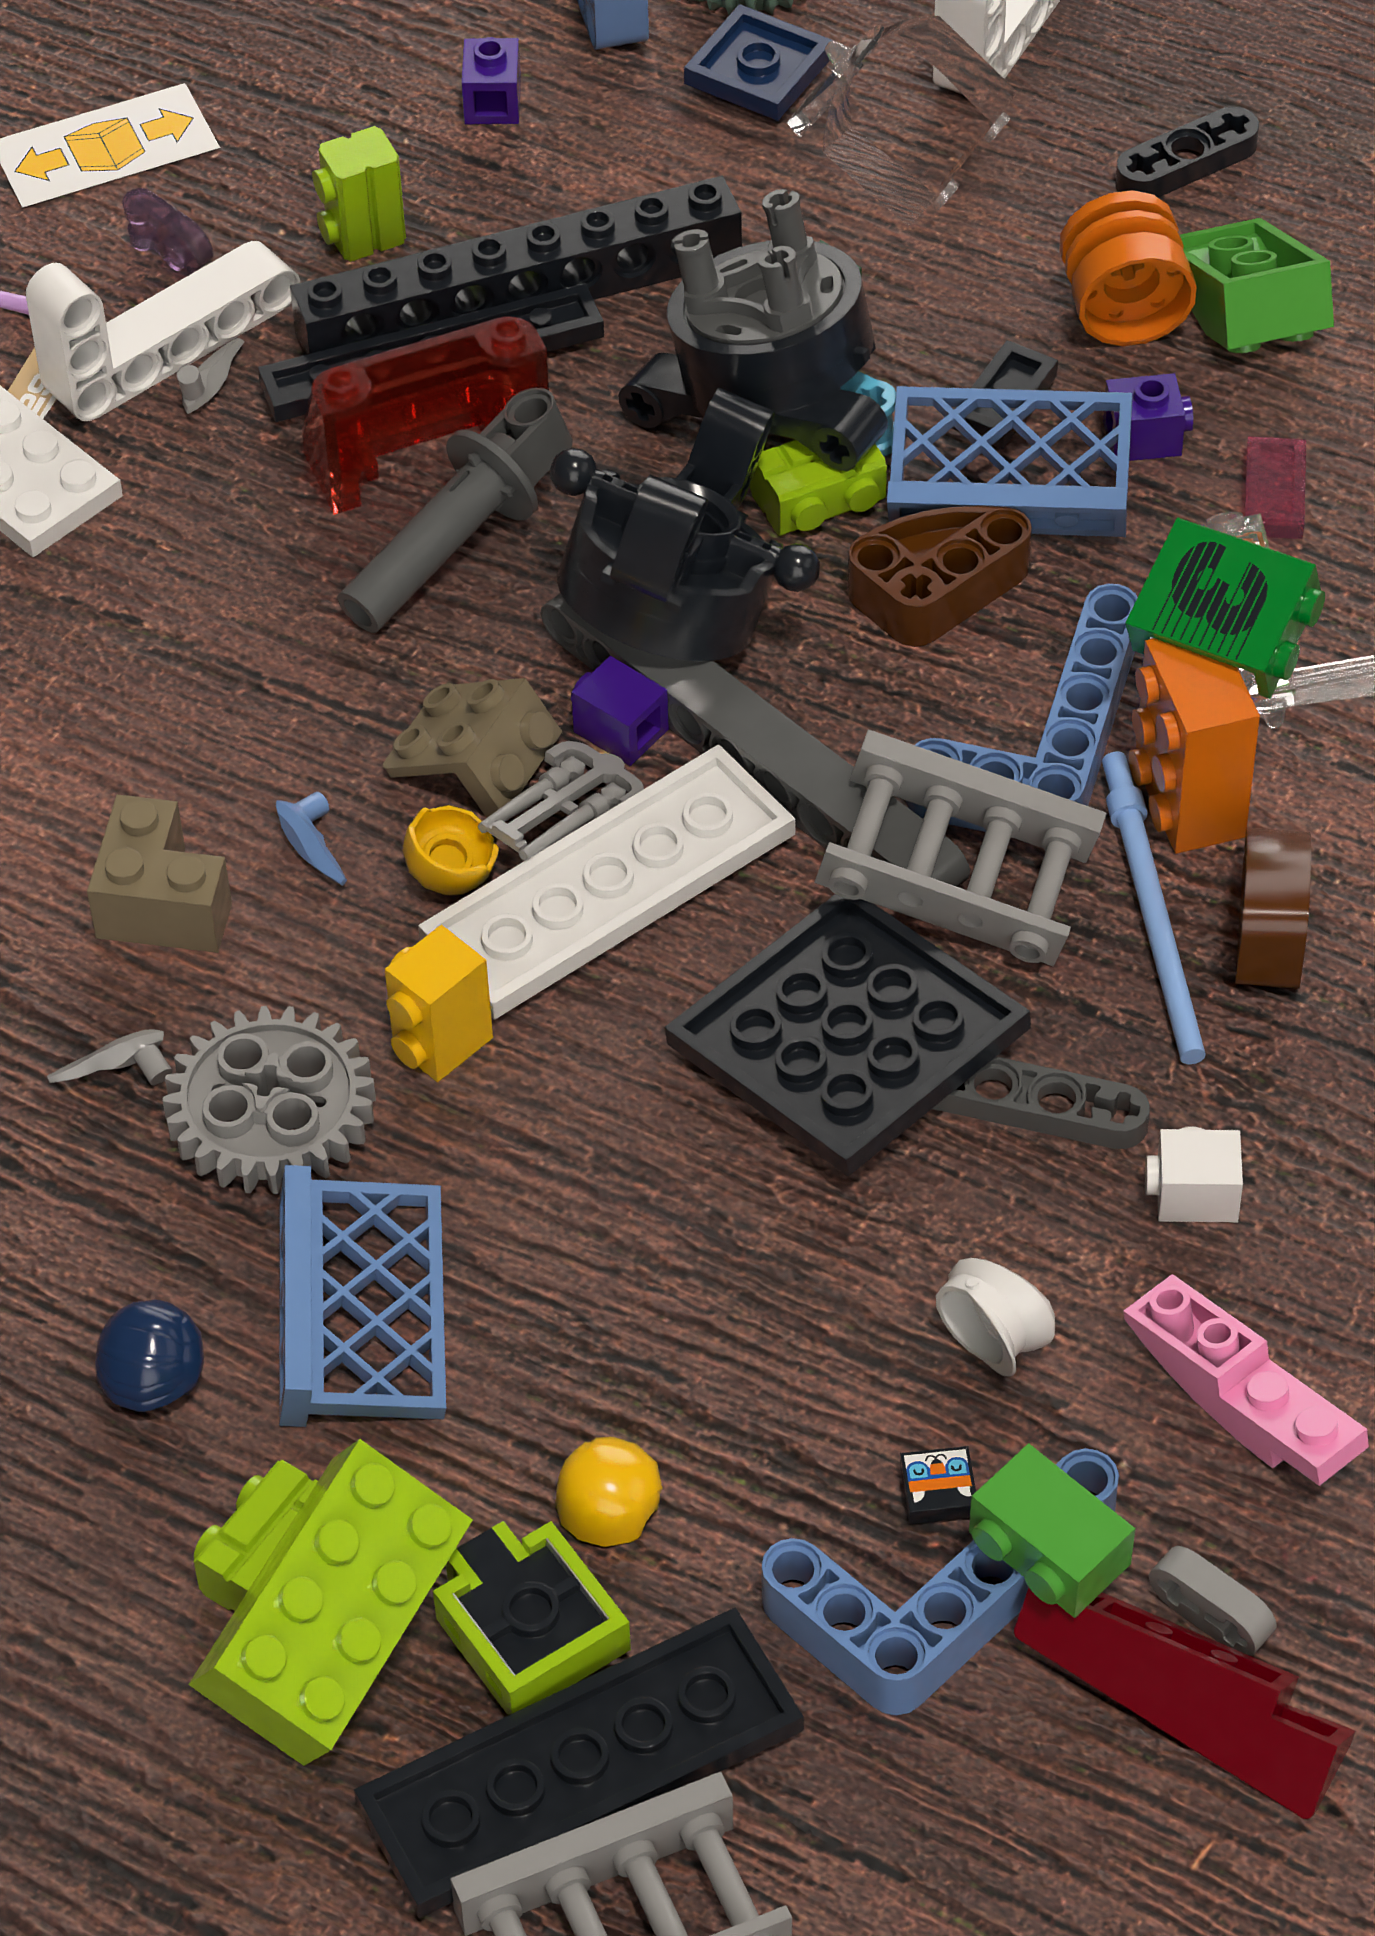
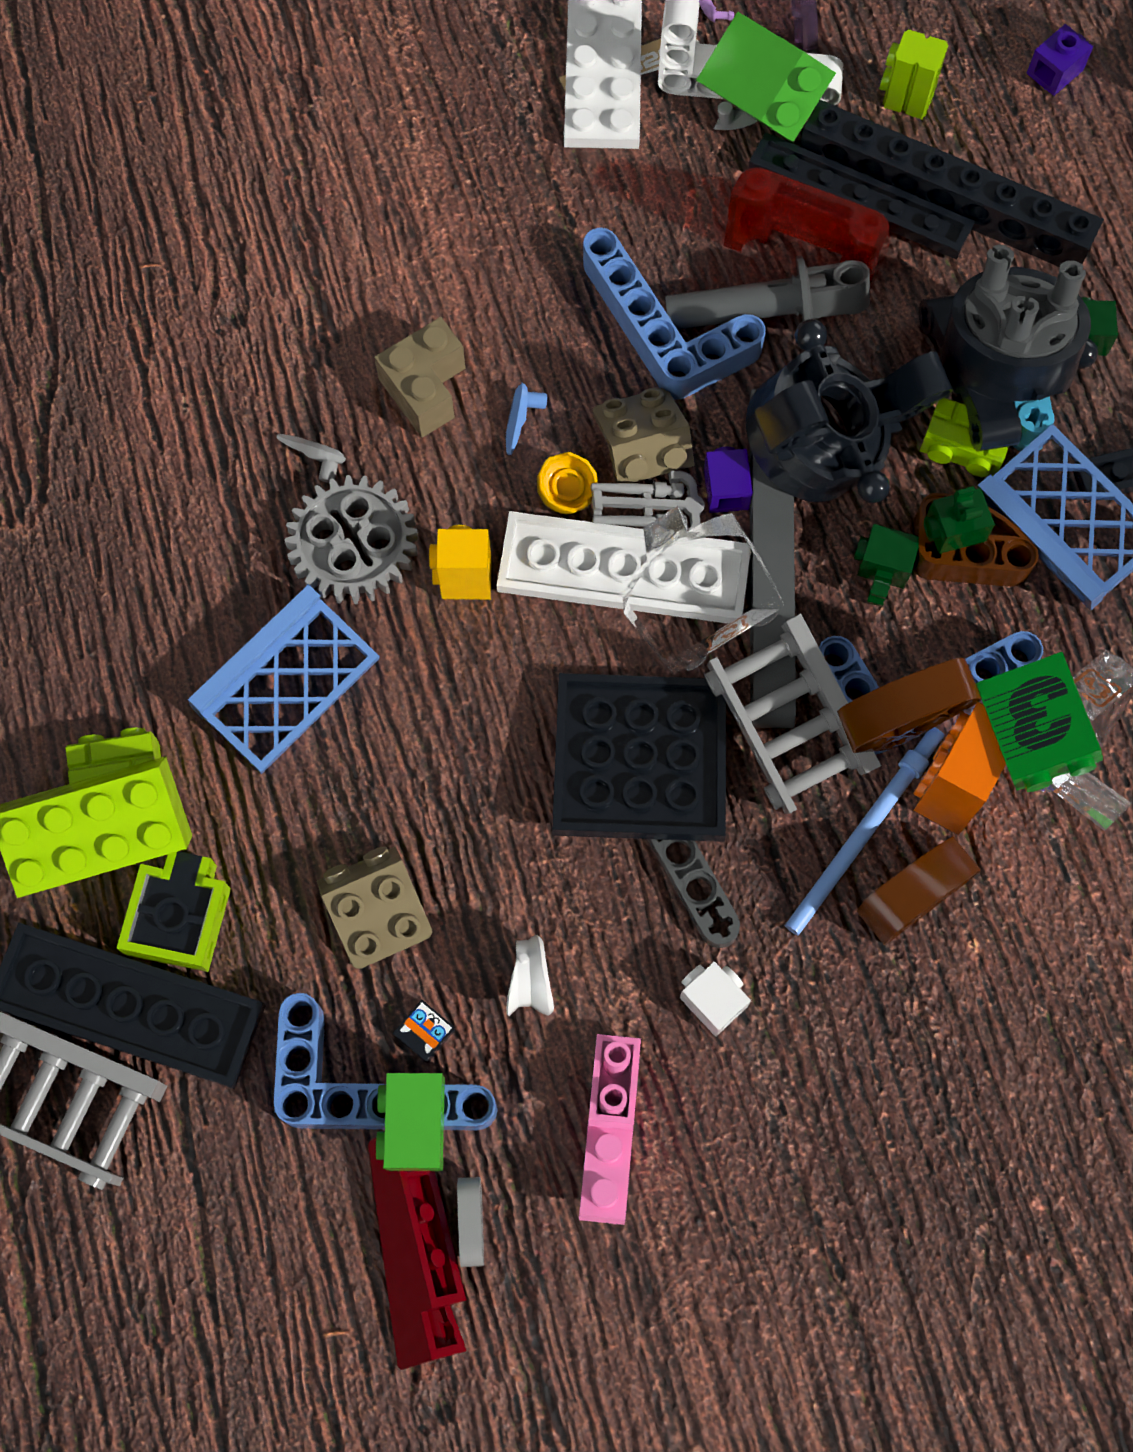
camera: 45 degrees right, 20 degrees up
(148, 1355) = (167, 621): dark blue hair -> none
(209, 305) = (765, 76): none -> bright green slope
(356, 637) = (657, 326): none -> medium blue beam
(607, 1491) = (282, 884): yellow hair -> none
(633, 787) = (670, 530): none -> clear piece
(740, 1410) = (374, 907): none -> dark tan bracket
(874, 648) = (886, 559): none -> dark green brick
(915, 533) = (959, 520): none -> dark green brick
(1080, 711) = (909, 706): none -> reddish brown beam

